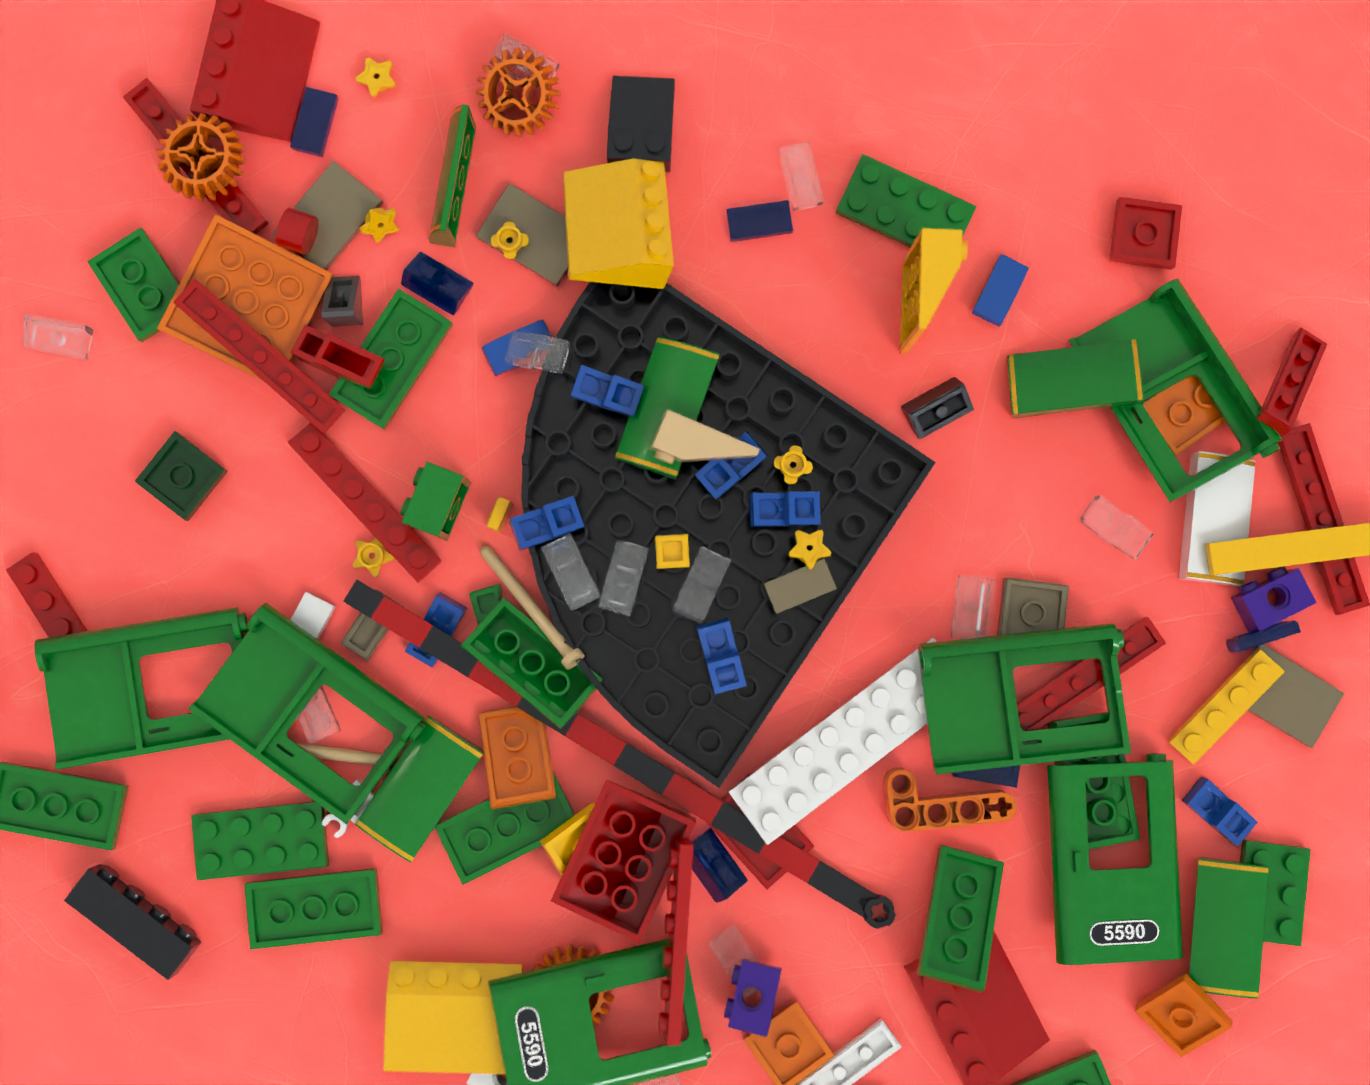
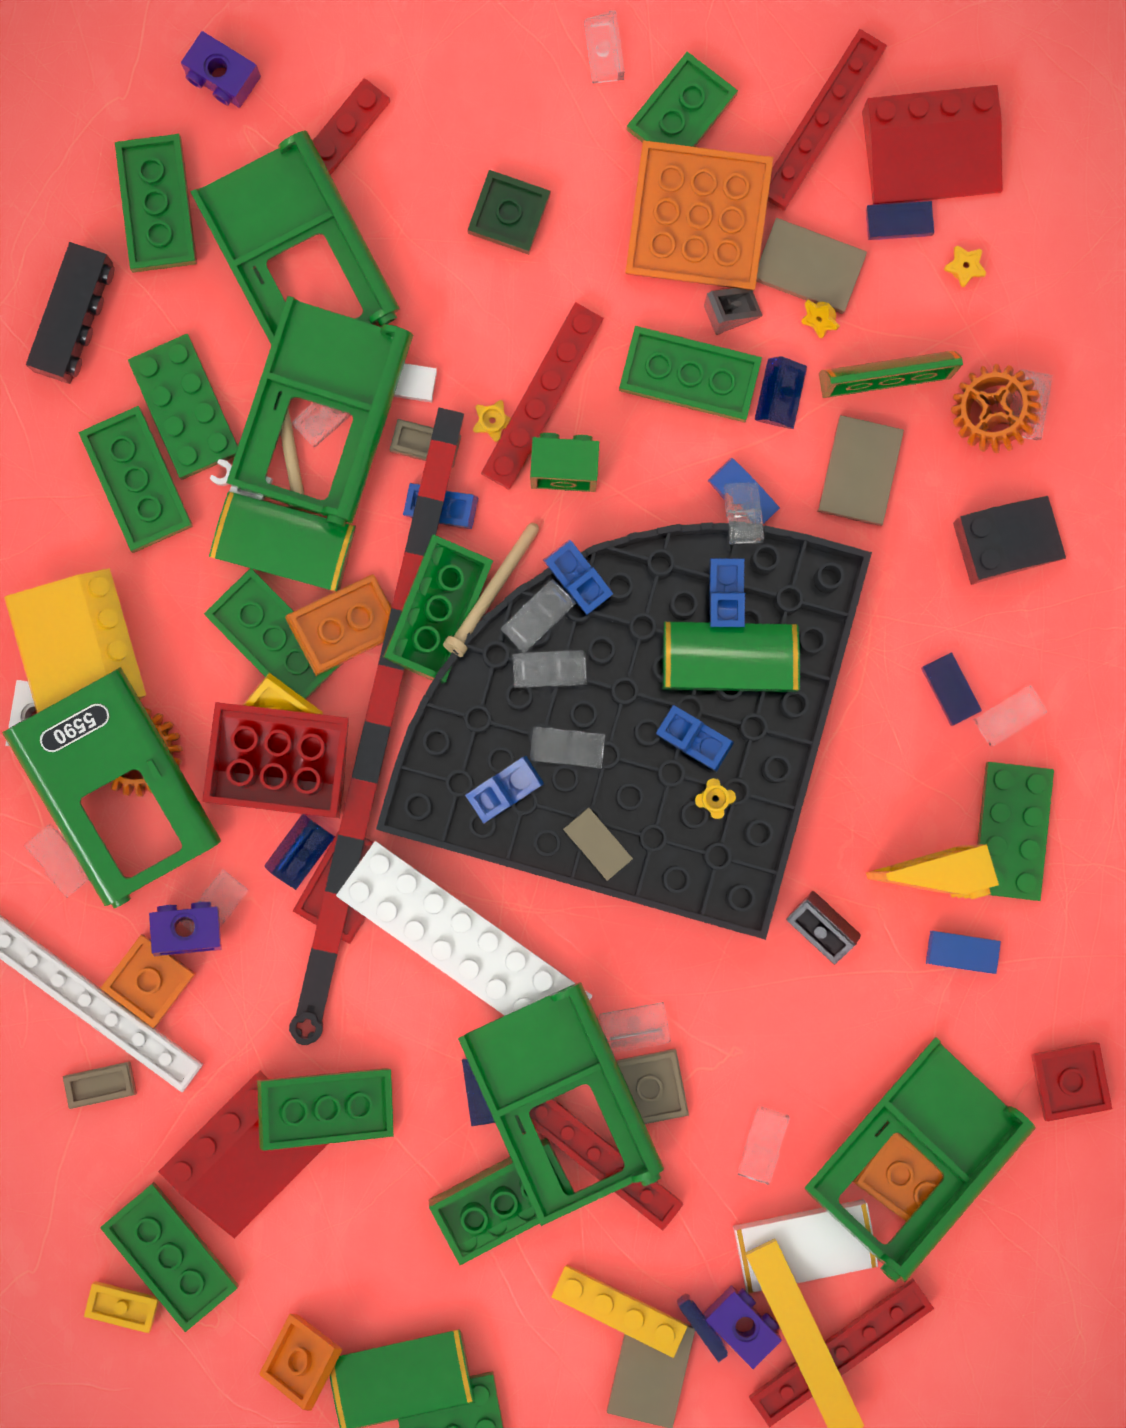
camera: 75 degrees right, 0 degrees up
(199, 133) = (849, 115): orange gear -> none
(259, 356) = (649, 247): red plate -> none
(297, 231) = (784, 241): red piece -> none
(337, 357) = (673, 321): red slope -> none
(485, 601) = (484, 544): green tile -> none
(499, 514) = (572, 529): yellow tile -> none
(509, 231) = (854, 444): yellow plate -> none
(618, 224) = (896, 549): yellow slope -> none
(672, 551) = (591, 708): yellow tile -> none
(677, 927) = (229, 831): red plate -> none
(688, 440) = (702, 685): tan slope -> none
(784, 509) = (669, 804): blue slope -> none
(809, 557) = (629, 841): yellow plate -> none
(950, 804) = (434, 1063): orange beam -> none
(1075, 379) = (897, 1055): green slope -> none
(1116, 911) = (383, 1266): green piece -> none
(1219, 811) = (513, 1338): blue slope -> none
(1292, 381) = (969, 1275): red tile -> none

